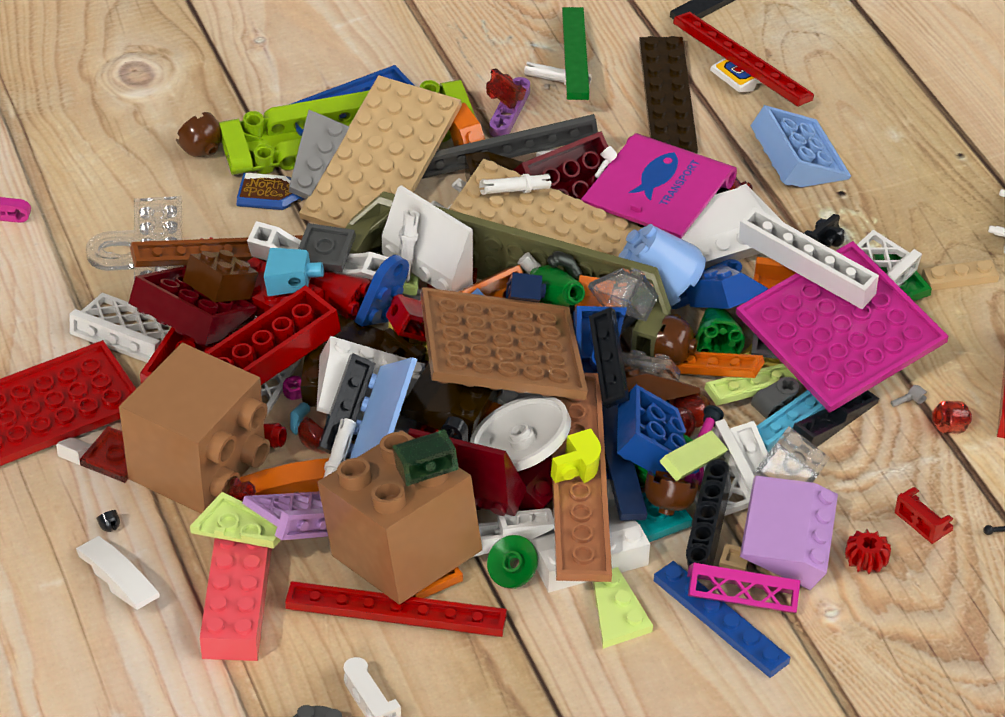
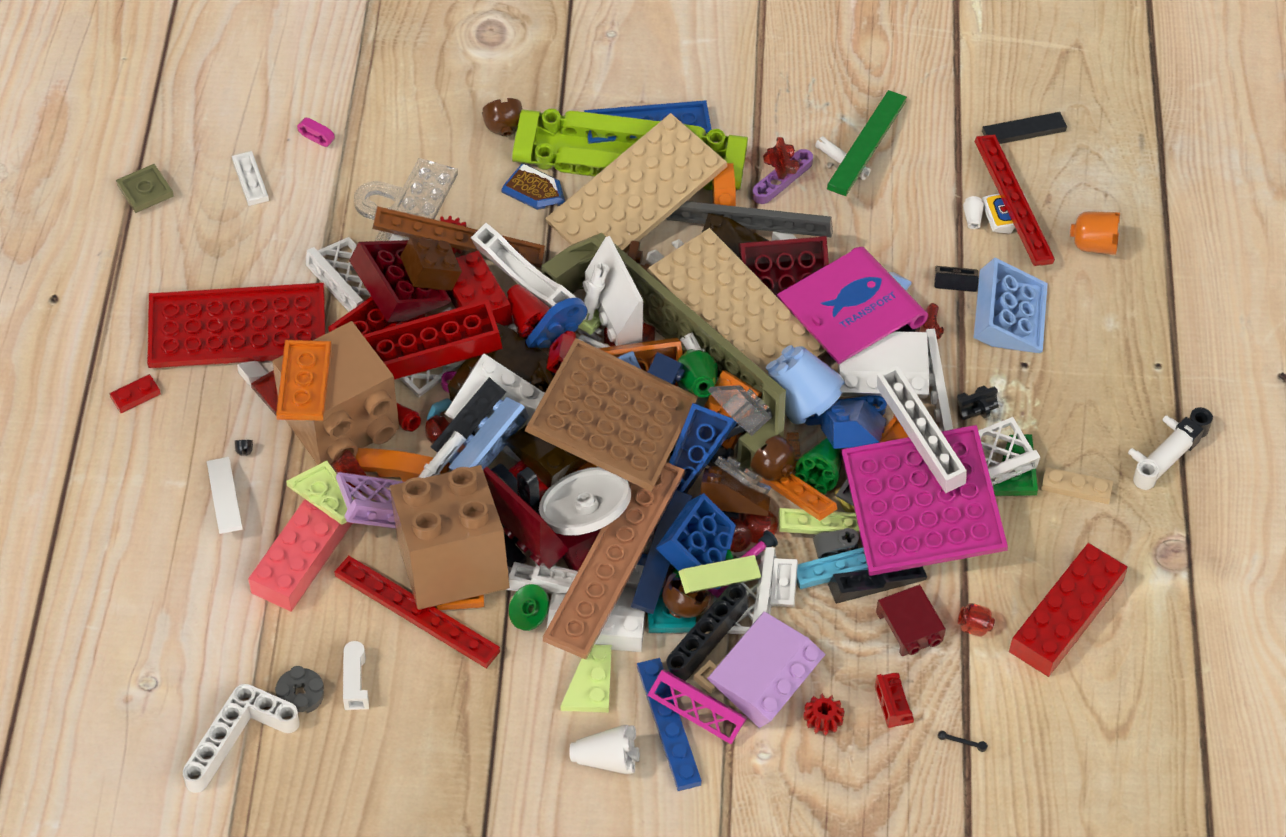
camera: 25 degrees right, 10 degrees up
(167, 411) = (304, 380): none -> orange tile
(289, 270) = (488, 279): medium azure torso -> none
(317, 147) = (589, 161): light grey wing -> none
(328, 245) = (530, 266): dark grey plate -> none
(425, 457) = (467, 503): clear green brick -> none
(524, 183) = (717, 264): white pin -> none
(565, 260) = (716, 354): pearl dark grey arm -> none
(580, 458) = (619, 546): neon yellow brick -> none
(609, 155) = (823, 260): white hand -> none
(609, 358) = (694, 460): black tile -> none
(667, 91) = (928, 212): dark brown plate -> none
(681, 662) = (608, 750): none -> white cone
(710, 81) = (973, 211): none -> white cone
(731, 141) = (956, 278): none -> black slope
(792, 459) = (806, 609): clear slope -> none
(837, 60) = (1096, 232): none -> orange cylinder
(894, 437) = (911, 620): none -> dark red panel
(916, 393) = (961, 584): light grey hand -> none

